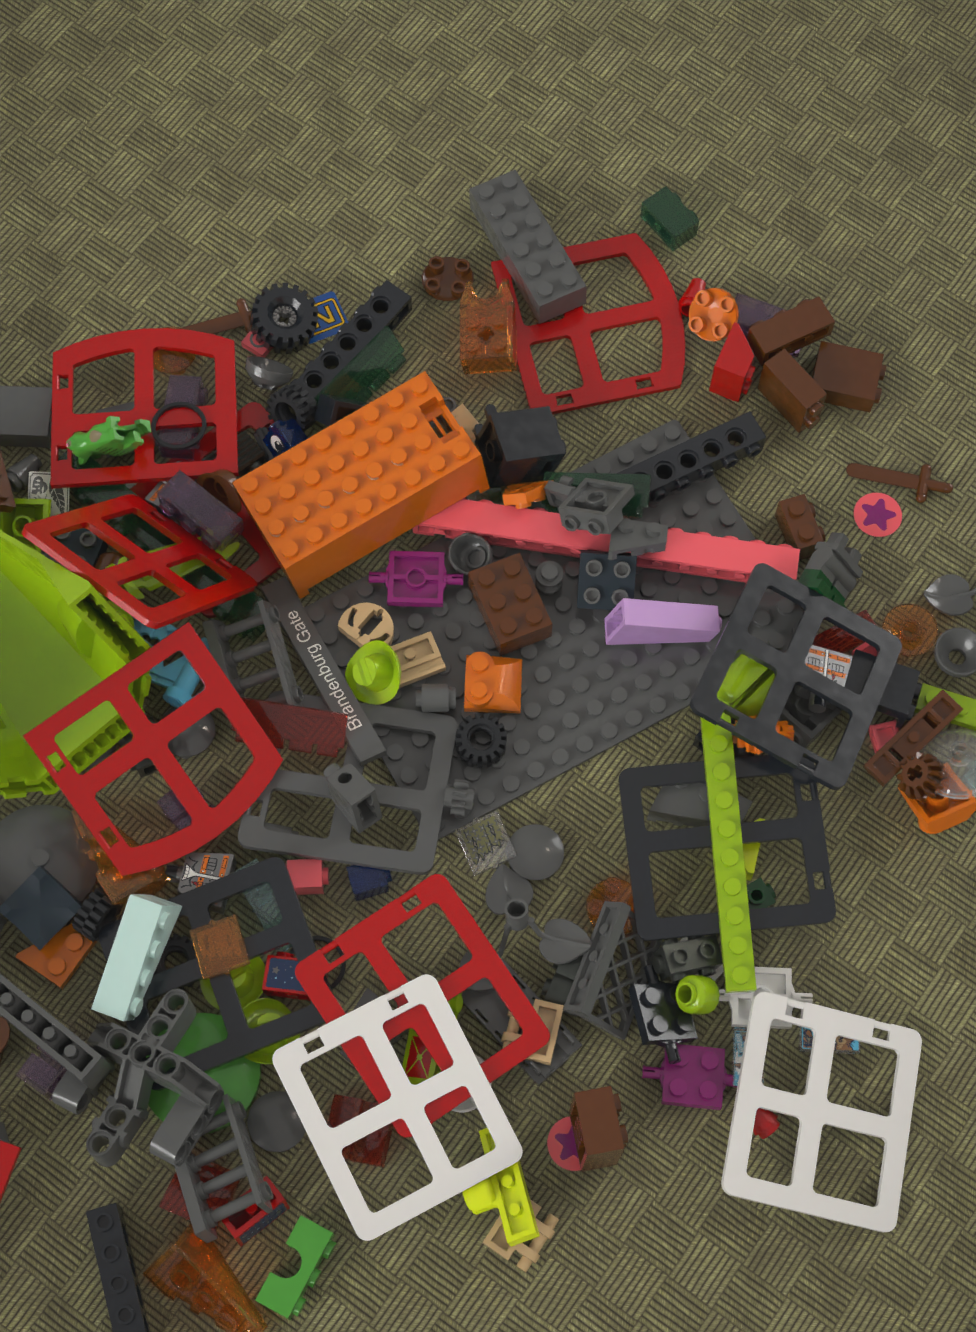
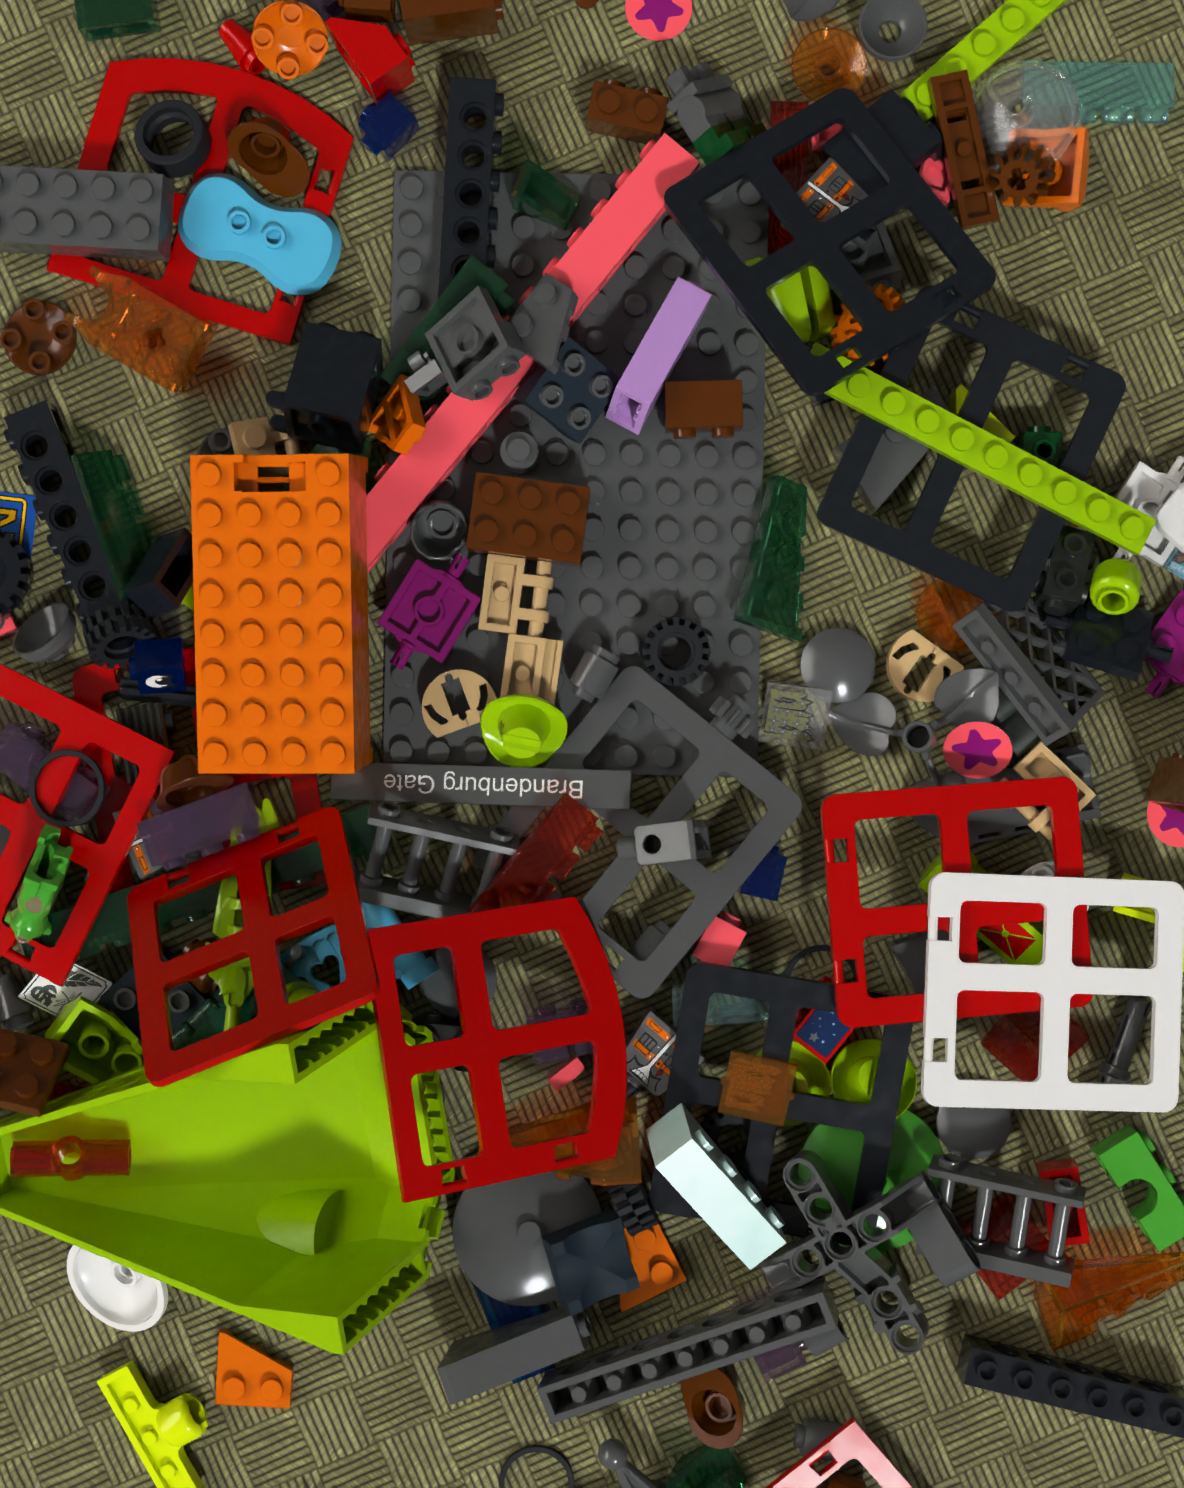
camera: 60 degrees left, 20 degrees up
(160, 827) = (566, 1072): none -> coral tile
(386, 1195) = (1125, 1042): none -> dark grey pin
(454, 616) = (503, 594): none -> tan plate
(492, 684) = (612, 596): orange slope -> none
(533, 967) = (977, 750): none -> coral sticker
(561, 894) = (899, 668): none -> tan piece
(566, 776) = (772, 574): none -> clear green wing
(590, 380) = (232, 223): none -> medium azure plate
(612, 272) = (156, 119): none -> black tyre
(638, 341) = (269, 156): none -> reddish brown piece
(646, 668) = (703, 407): none -> reddish brown brick
(698, 398) = (387, 127): none -> clear blue brick
(715, 503) = (544, 196): none -> clear green slope

